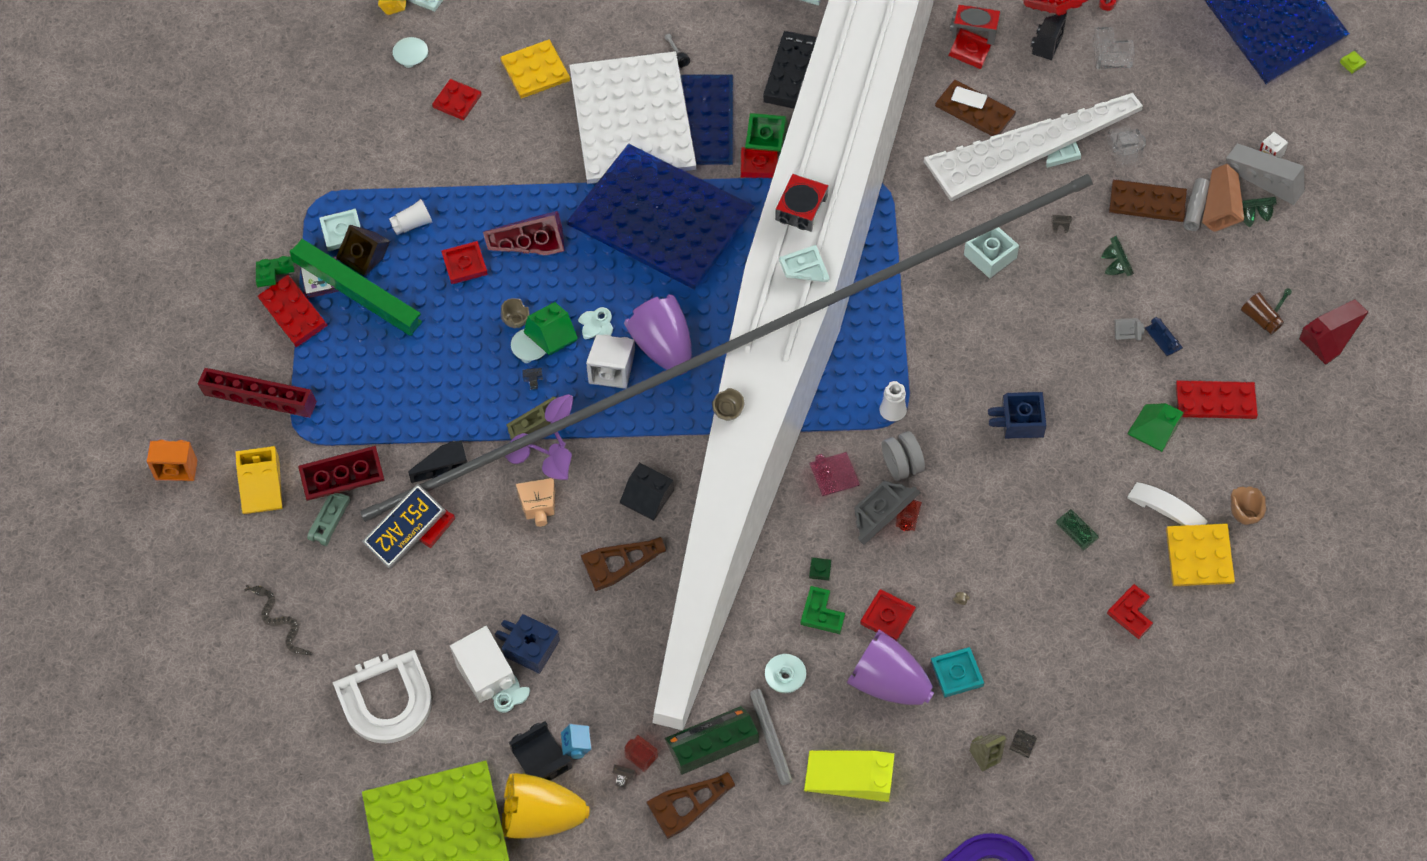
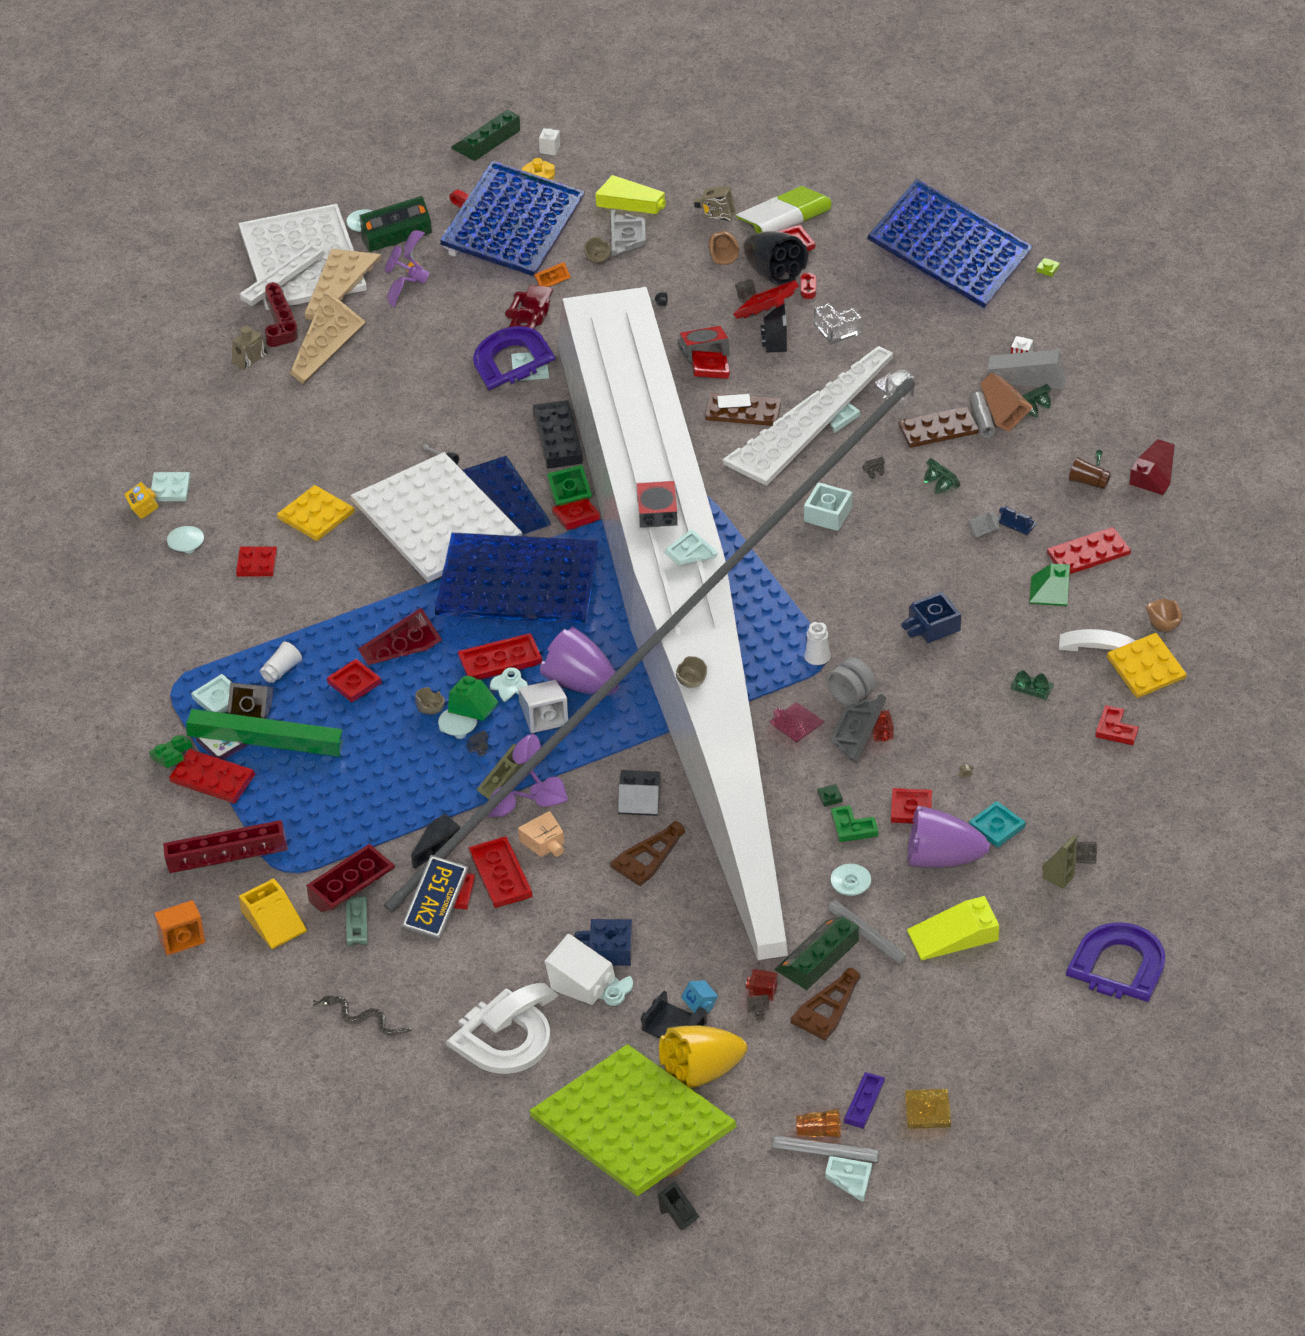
camera: 25 degrees left, 15 degrees down
(412, 673) = (517, 1002): none -> white slope
(479, 521) = (500, 872): none -> red plate
(603, 290) = (495, 657): none -> red plate

